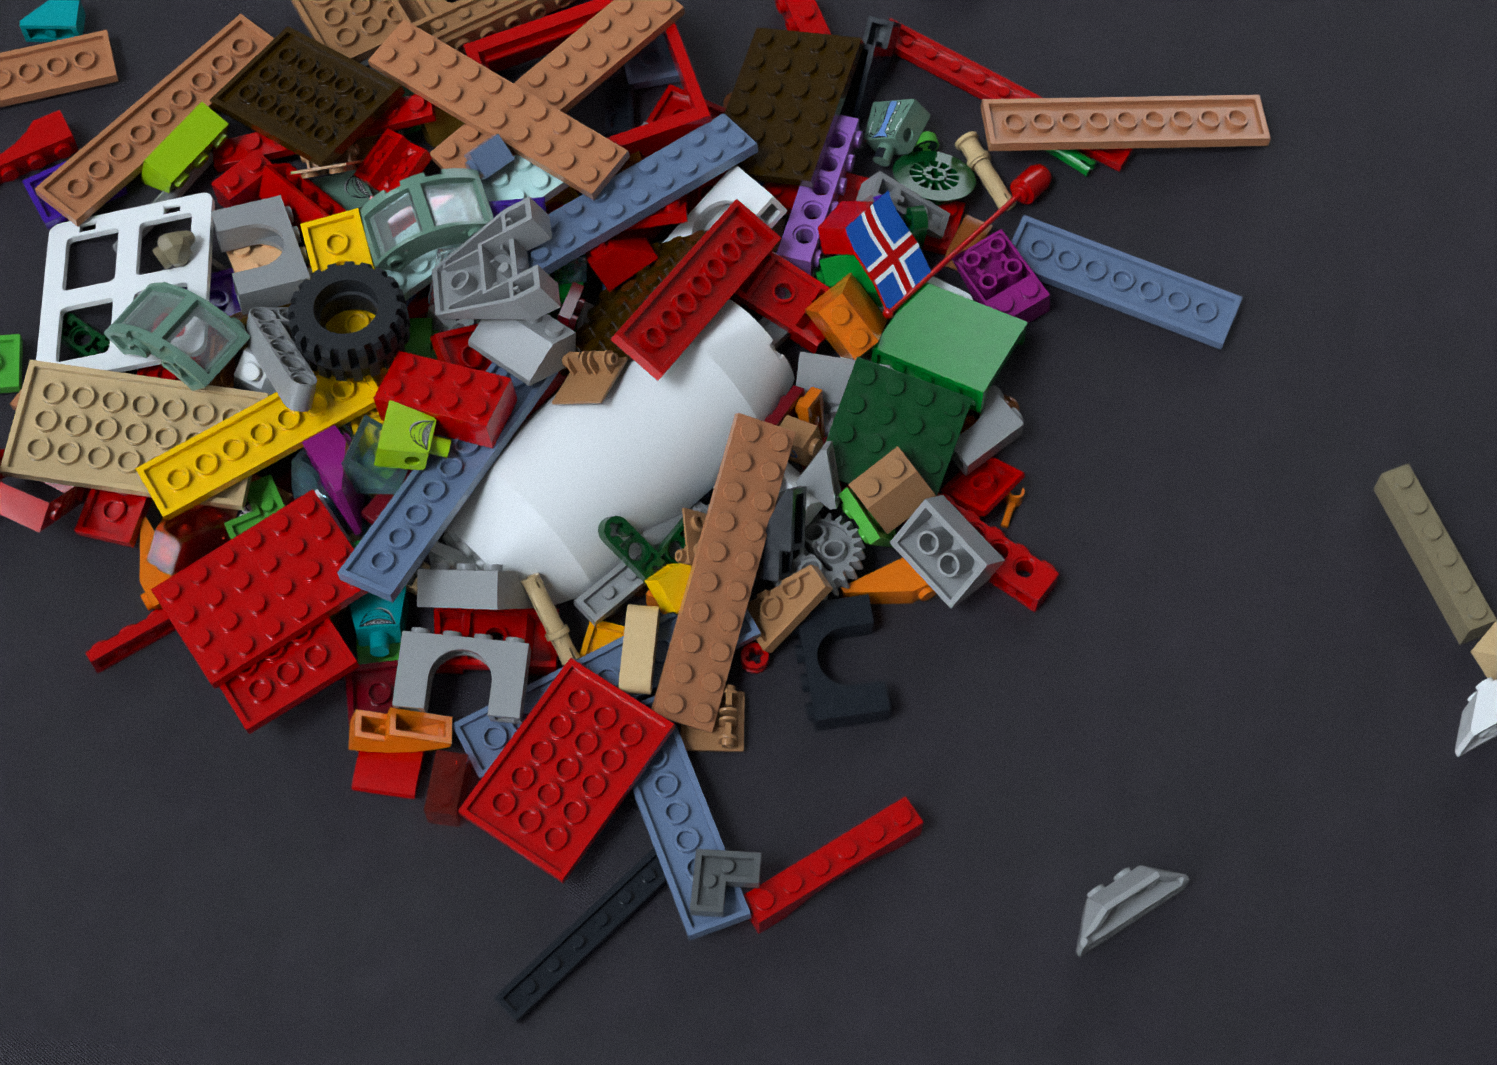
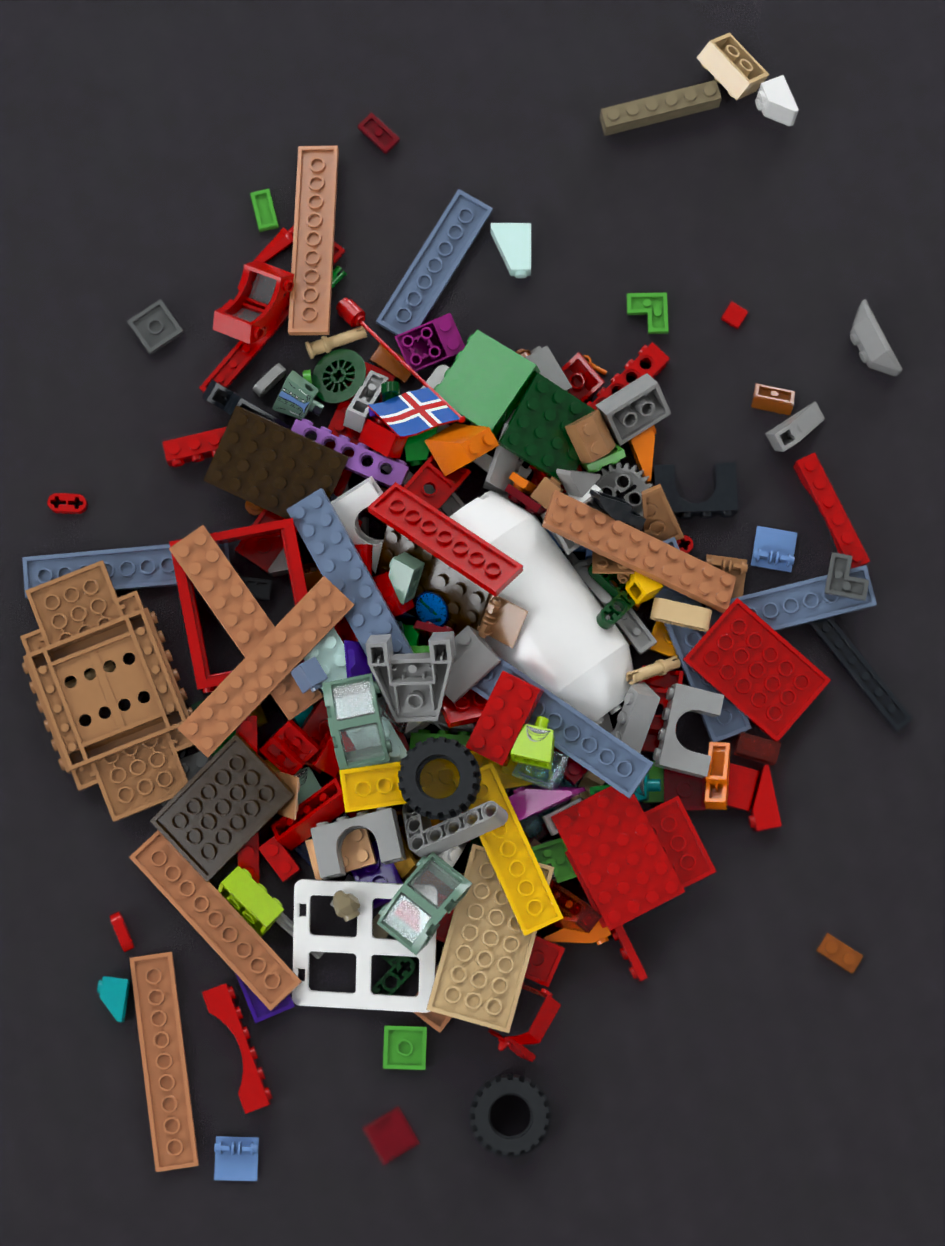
camera: 85 degrees left, 15 degrees up
(139, 945) = (839, 953): none -> dark orange plate
(142, 19) = (121, 931): none -> red beam
(361, 809) = (764, 807): none -> red slope
(603, 306) = (431, 608): none -> clear blue sticker
(642, 259) = (405, 576): none -> sand green slope
(765, 788) = (774, 549): none -> medium blue hinge
(906, 89) = (269, 380): none -> light grey beam
(963, 799) = (795, 428): none -> light grey slope
(1005, 766) = (773, 399): none -> dark orange slope
(1015, 65) = (258, 304): none -> red window
(1099, 82) = (278, 244): none -> red bar
(1117, 579) = (652, 305): none -> bright green plate
(1128, 696) = (734, 315): none -> red tile
(1159, 70) = (264, 210): none -> bright green tile
(1170, 380) = (514, 246): none -> light aqua slope
(1302, 191) = (378, 133): none -> dark red plate

